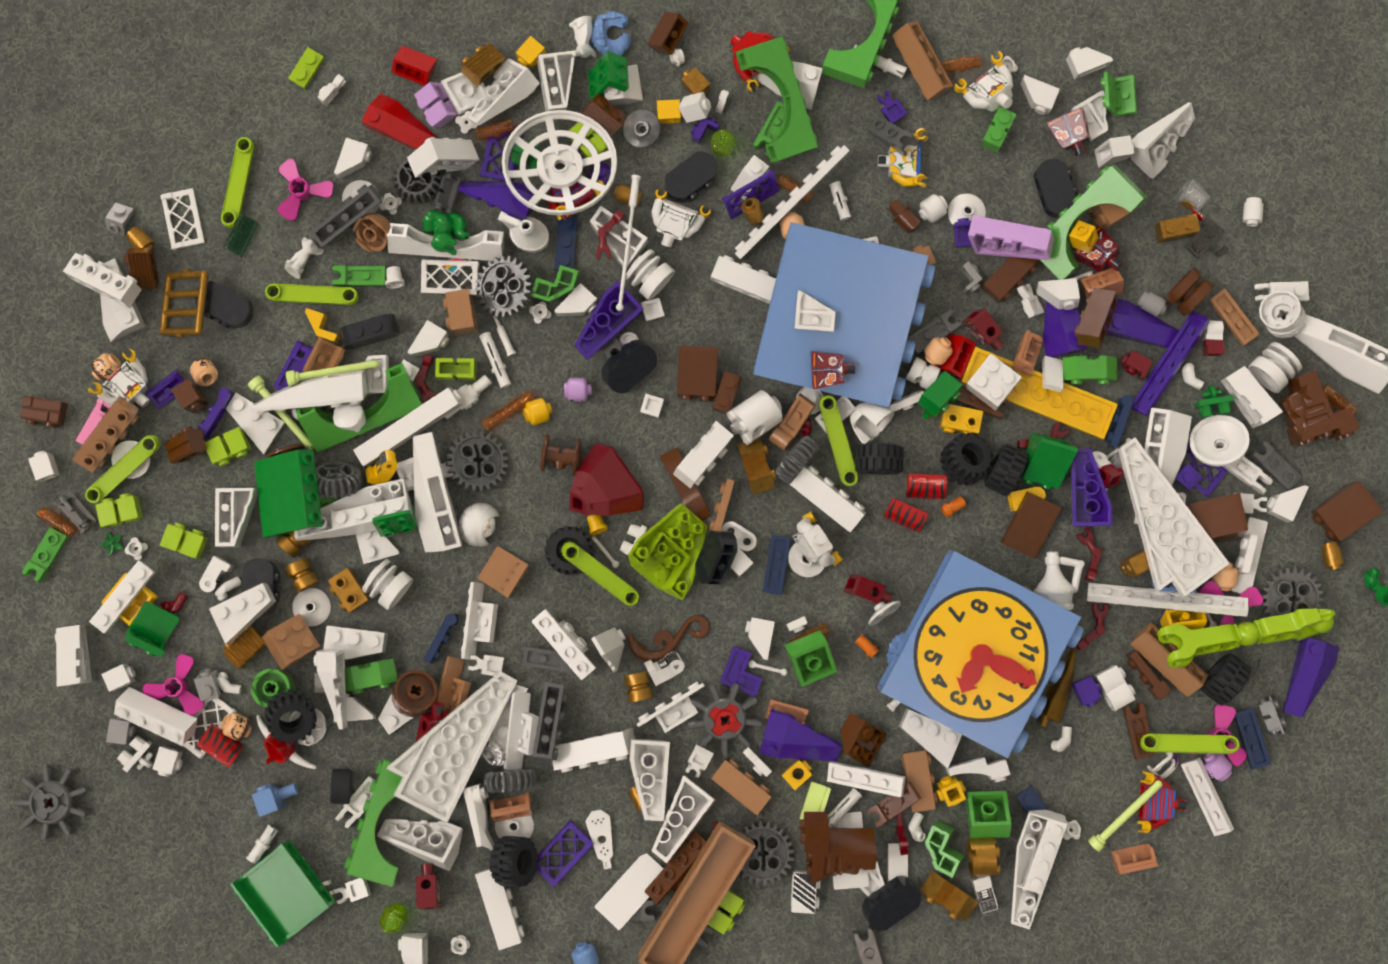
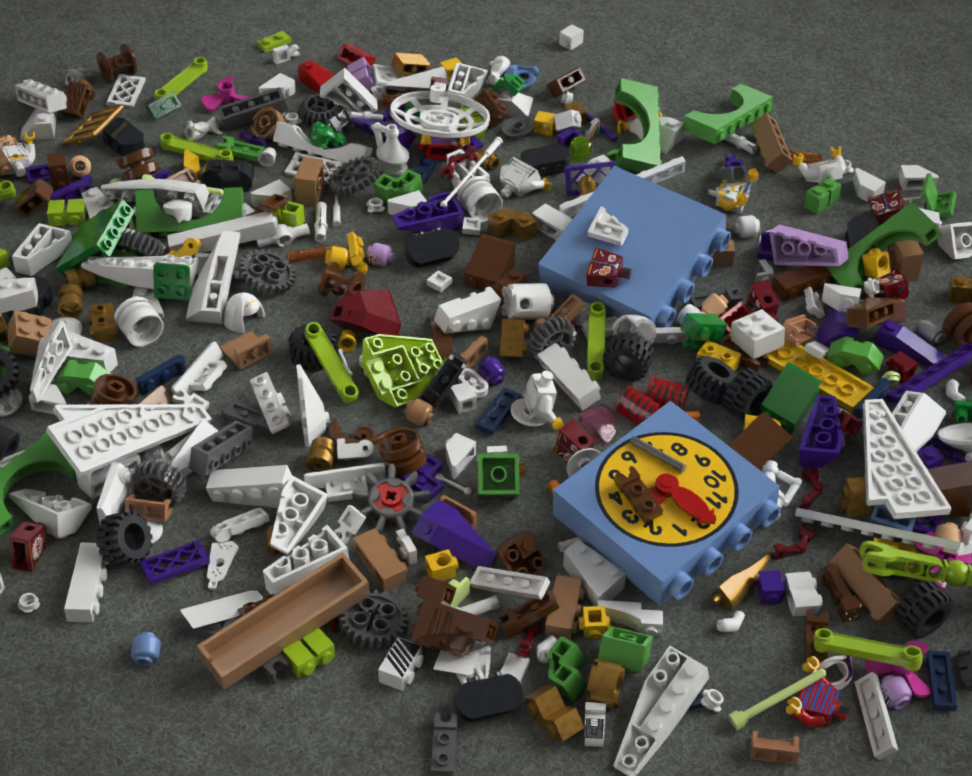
camera: 20 degrees right, 40 degrees down
(154, 187) = (110, 65): none -> reddish brown hose
(269, 356) = (138, 164): none -> reddish brown wheel
(359, 250) = (253, 140): none -> dark purple piece
(446, 376) = (273, 203): none -> reddish brown tile
(472, 175) = (366, 115): none -> white bar
(544, 126) = (438, 89): none -> white leg
(554, 398) = (356, 252): none -> yellow hinge
(600, 791) = (238, 524): none -> white hinge
(702, 291) = (513, 222): none -> pearl gold brick
(704, 596) = (419, 412): none -> medium nougat head
(712, 660) = (403, 449): none -> reddish brown wheel
(732, 93) = (603, 129): none -> dark purple bar
(751, 516) = (491, 371): none -> dark purple head
(876, 541) = (602, 422): none -> clear pink brick
(962, 621) = (658, 454): none -> dark grey bar
(962, 680) = (638, 495): none -> reddish brown plate
(1085, 268) = (871, 287): none -> white plate
(1129, 384) = (893, 377): none -> yellowish green plate

